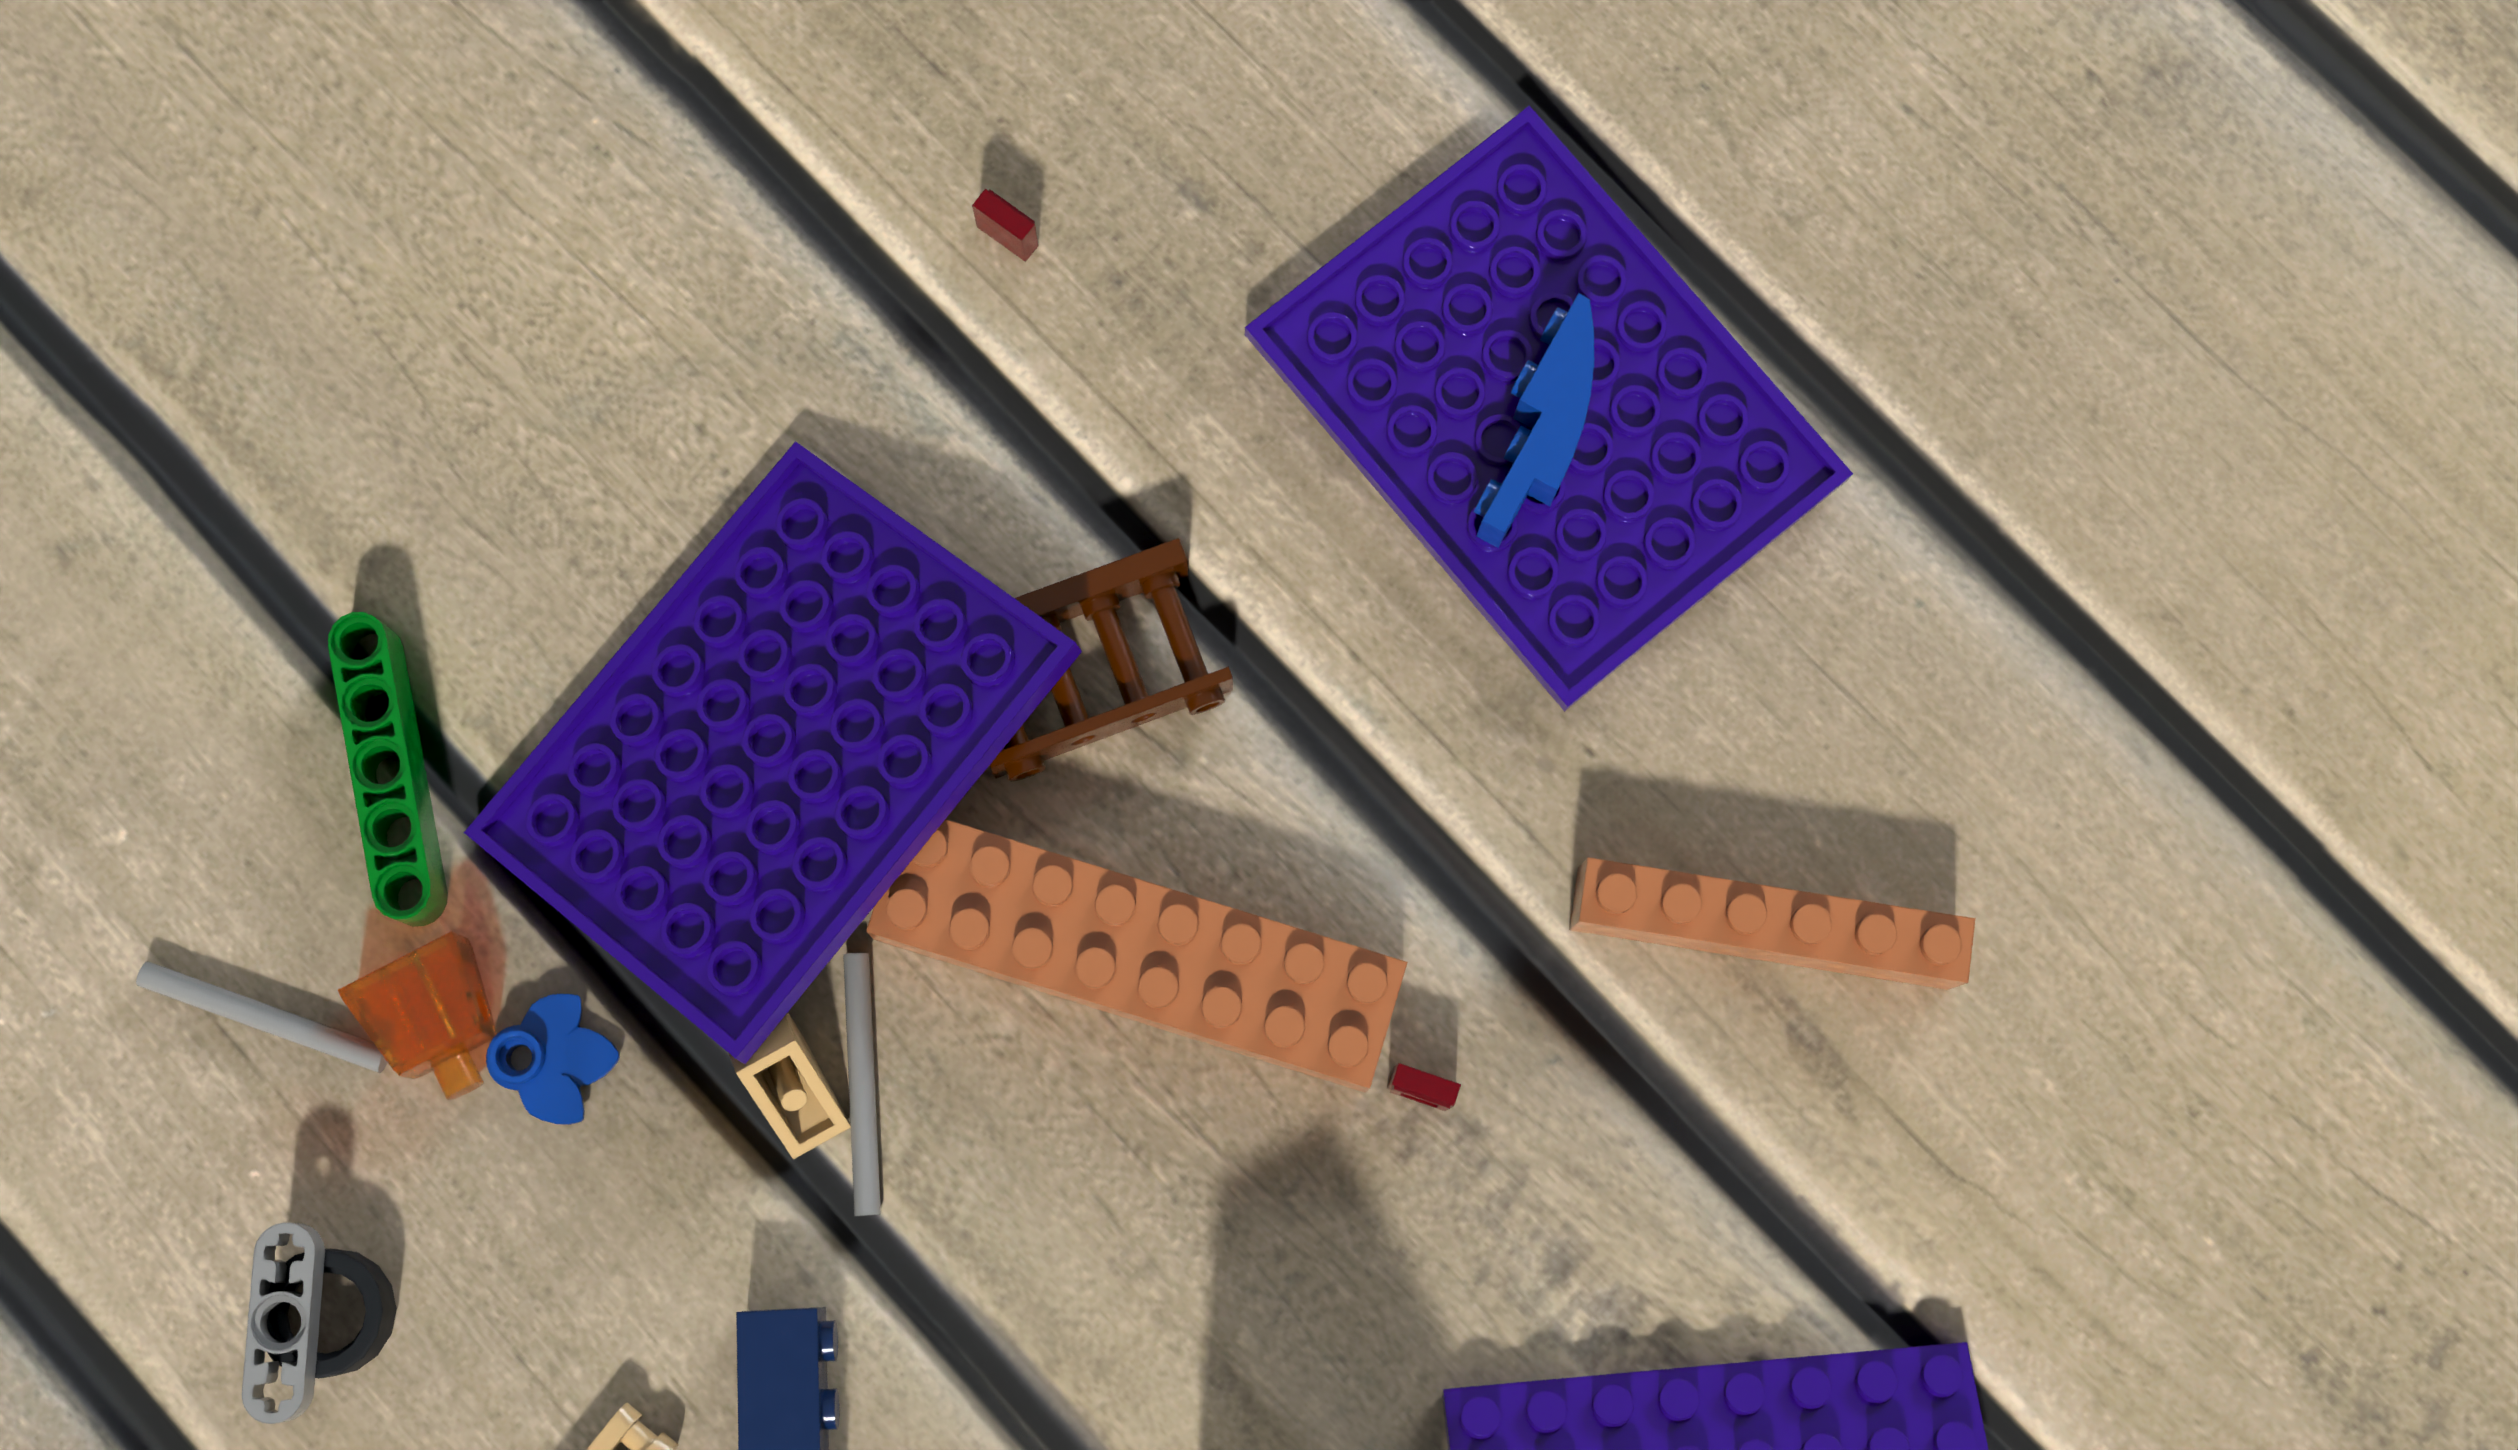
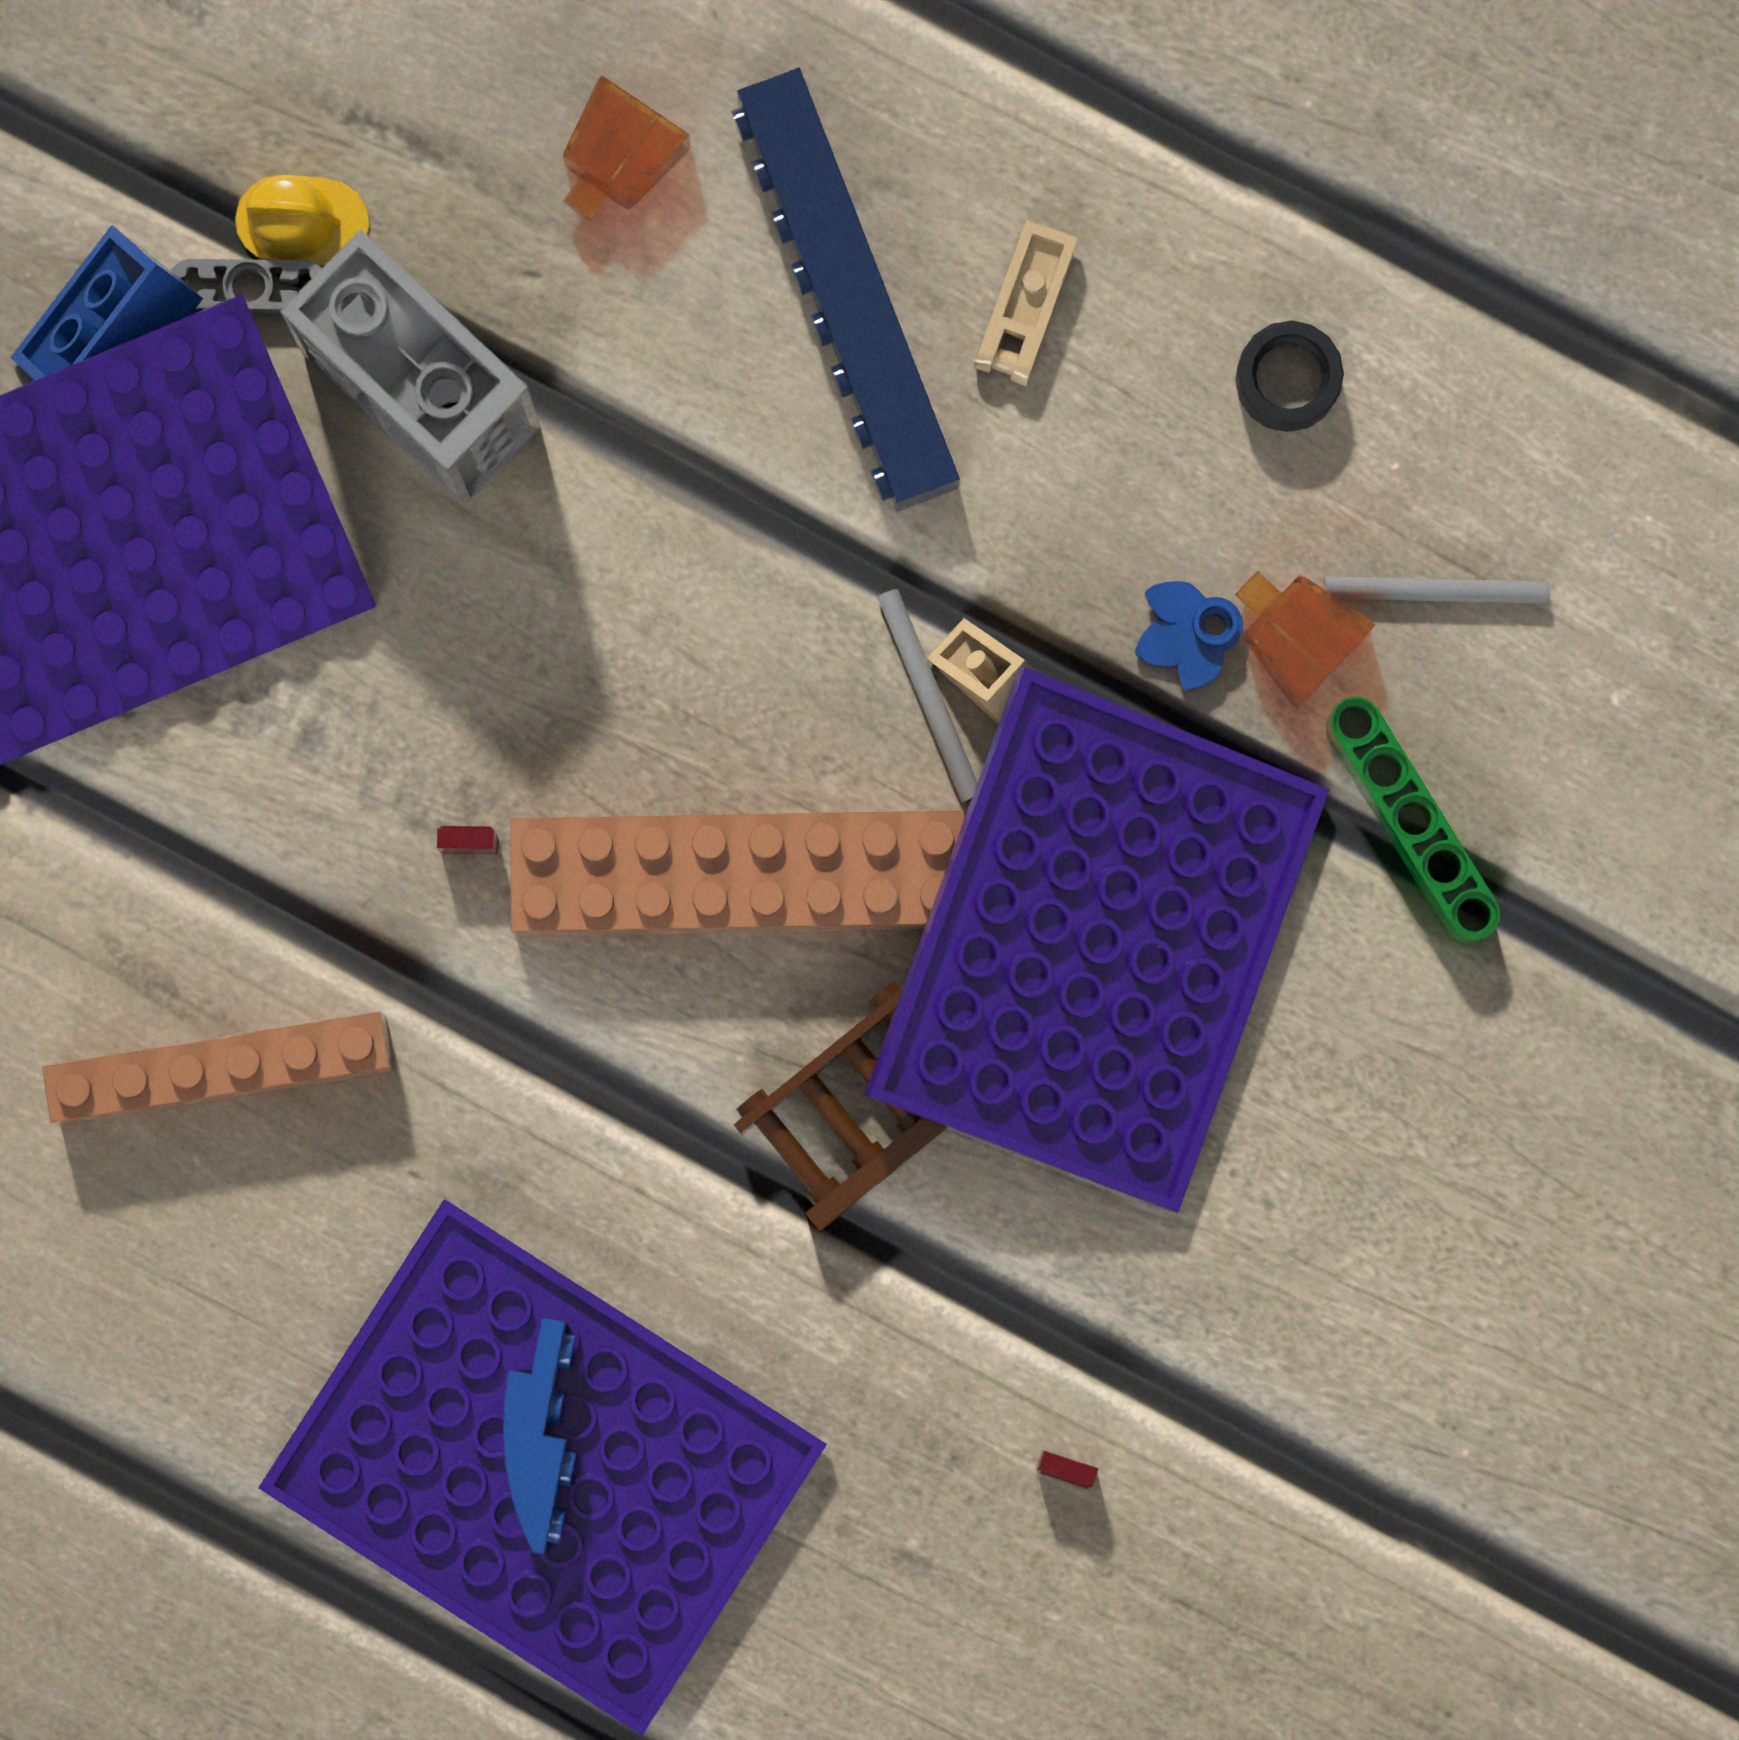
camera: 165 degrees right, 5 degrees up
(258, 1340) = (1287, 320): light grey beam -> none

